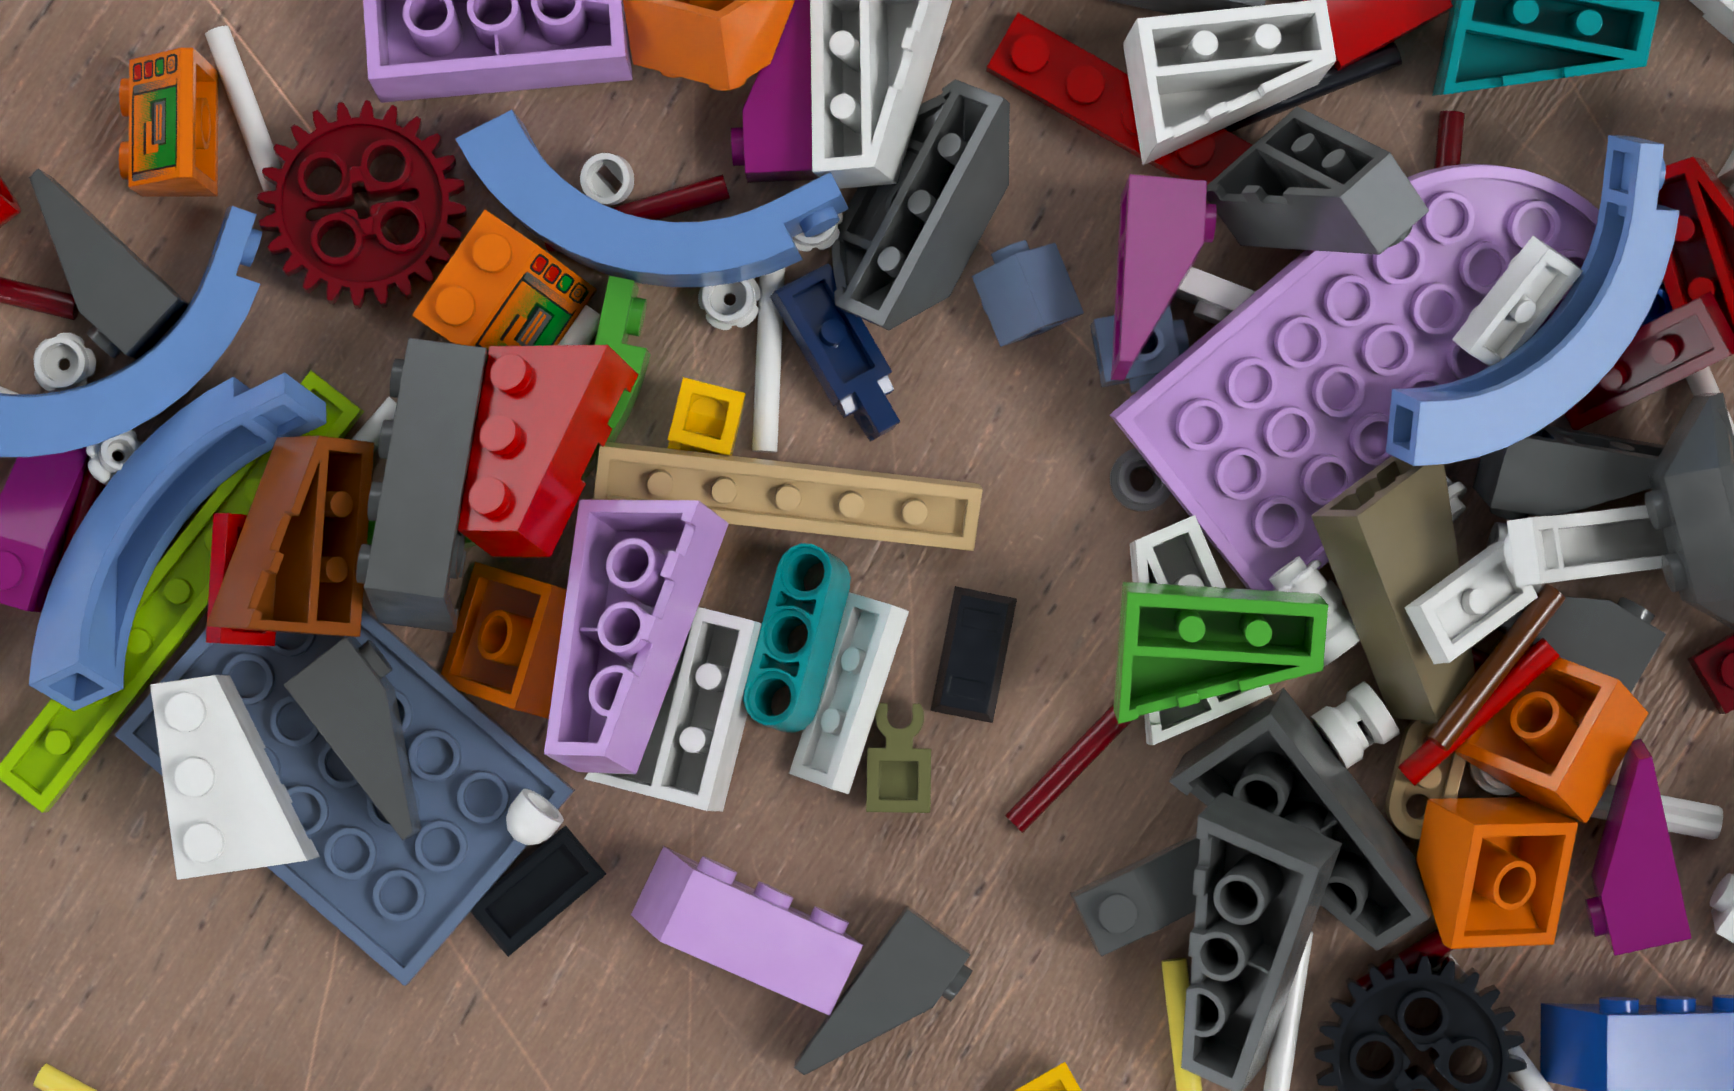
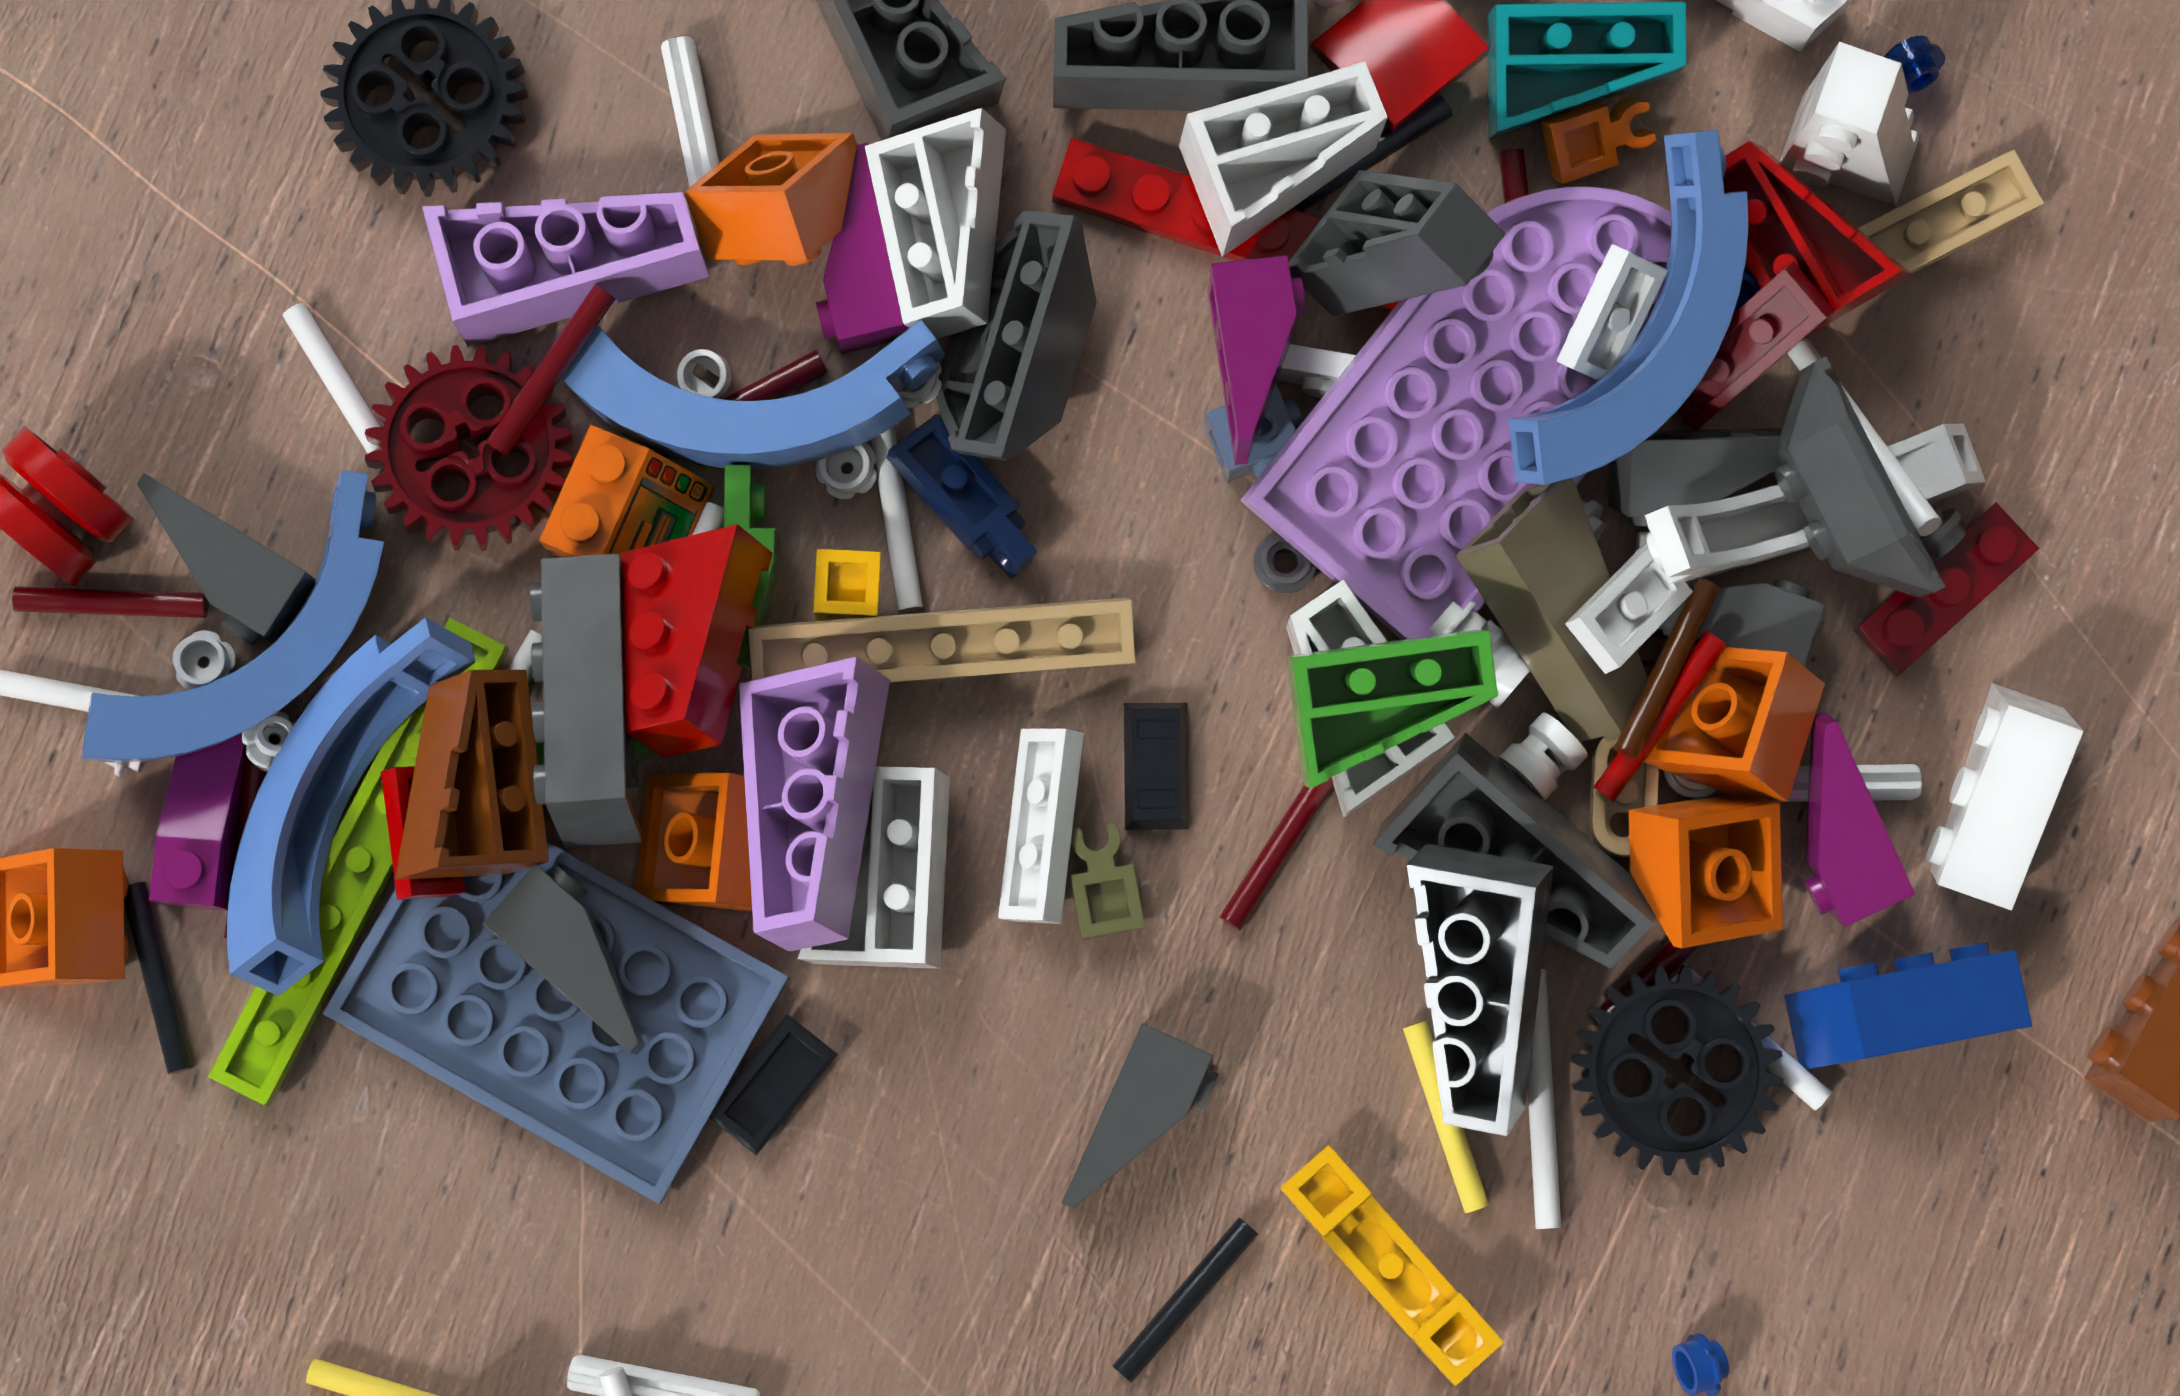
camera: 15 degrees left, 5 degrees down
(171, 125) = (266, 407): orange slope -> none
(220, 784) = (438, 1037): white wedge -> none
(455, 147) = (550, 370): none -> dark red bar
(532, 818) = (753, 1010): white hinge -> none
(747, 929) = (989, 1076): lavender wedge -> none
(787, 608) = (963, 757): teal beam -> none
(1026, 292) = (1135, 402): sand blue brick -> none
(1139, 897) = (1367, 967): dark grey slope -> none
(1530, 114) = (1587, 137): none -> orange plate

